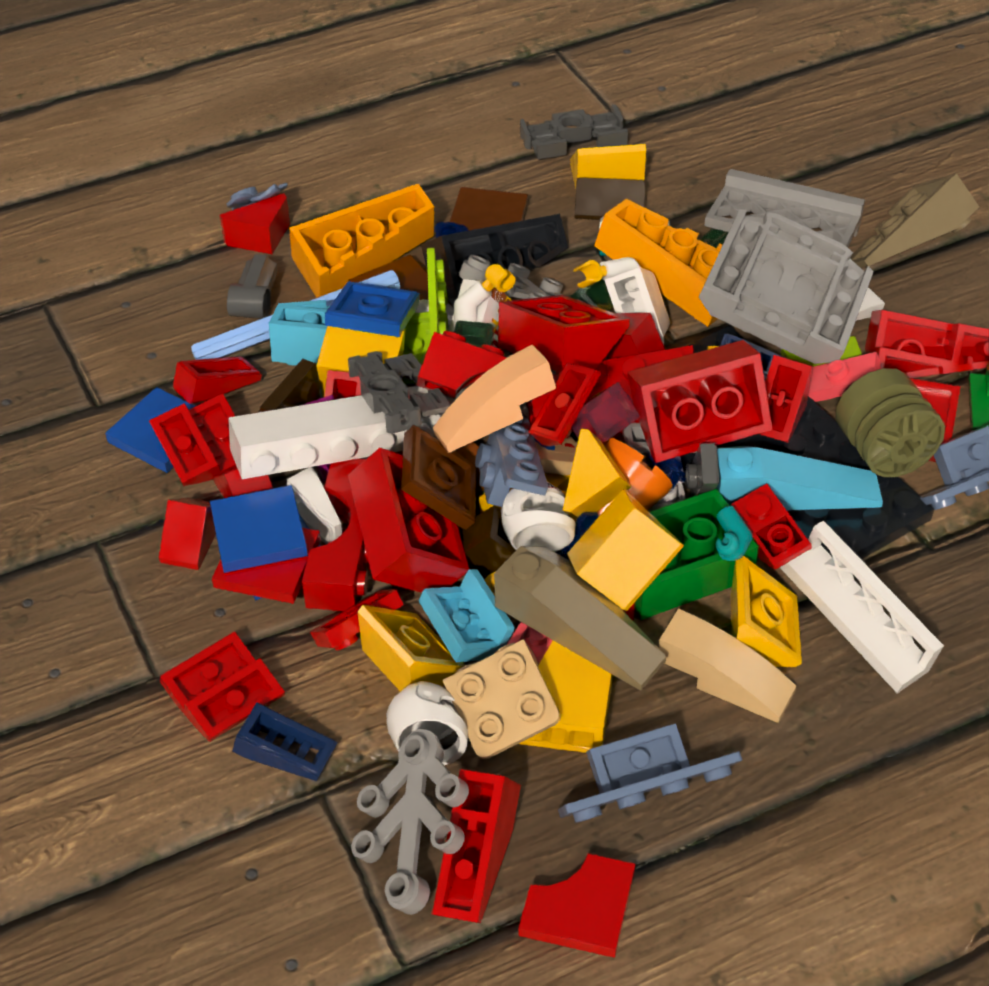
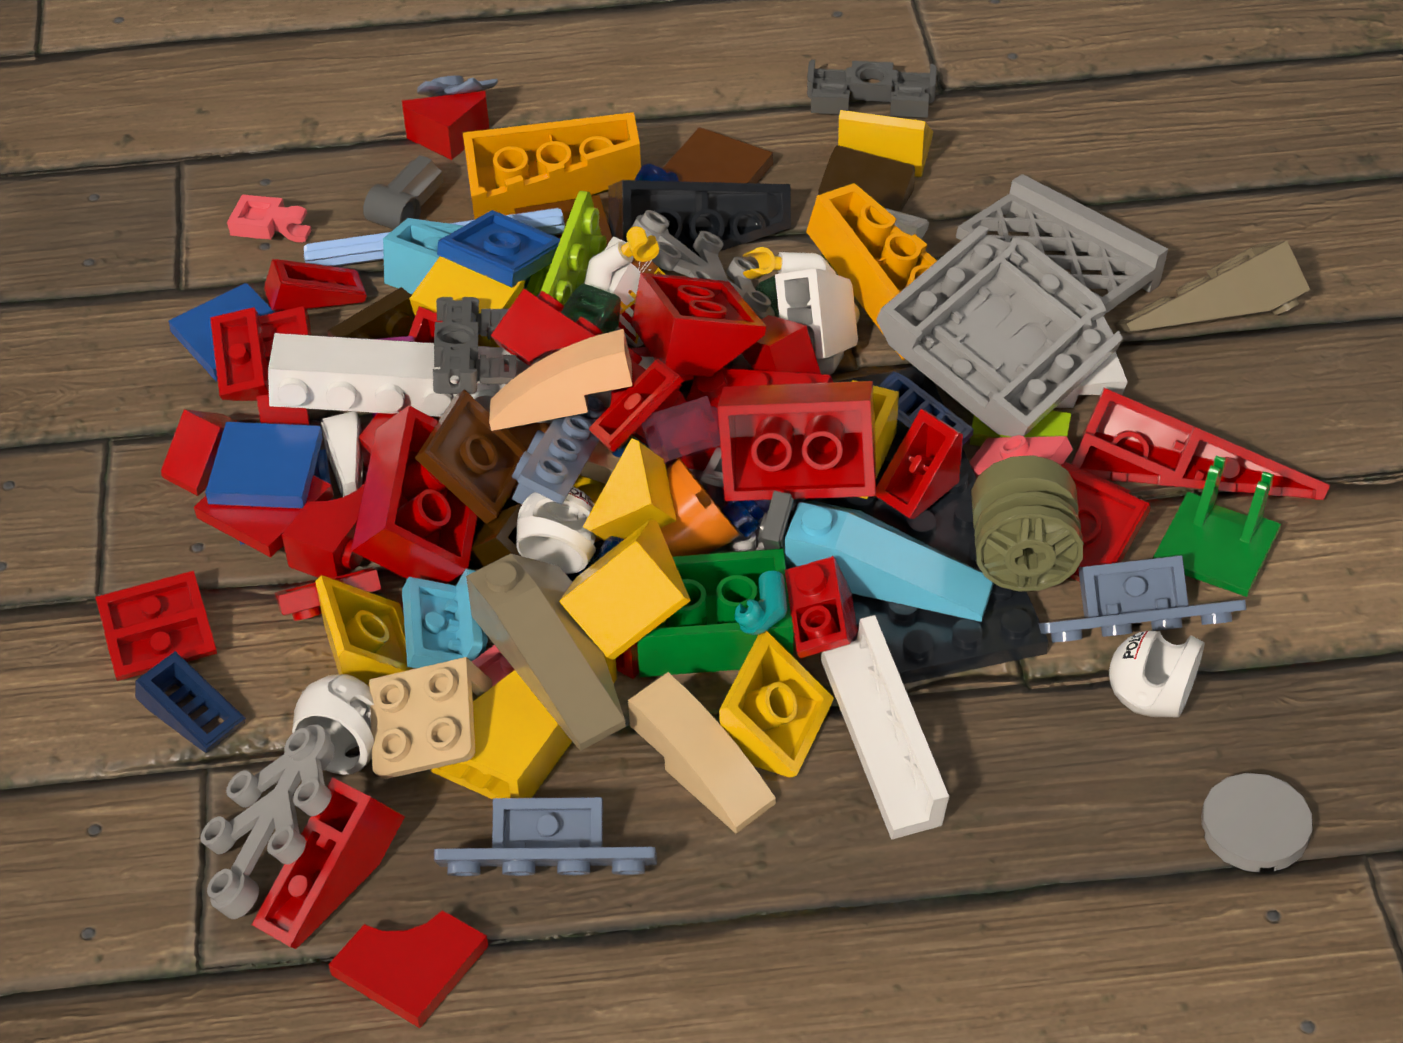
camera: 20 degrees right, 0 degrees up
(145, 331) = (262, 216): none -> coral plate

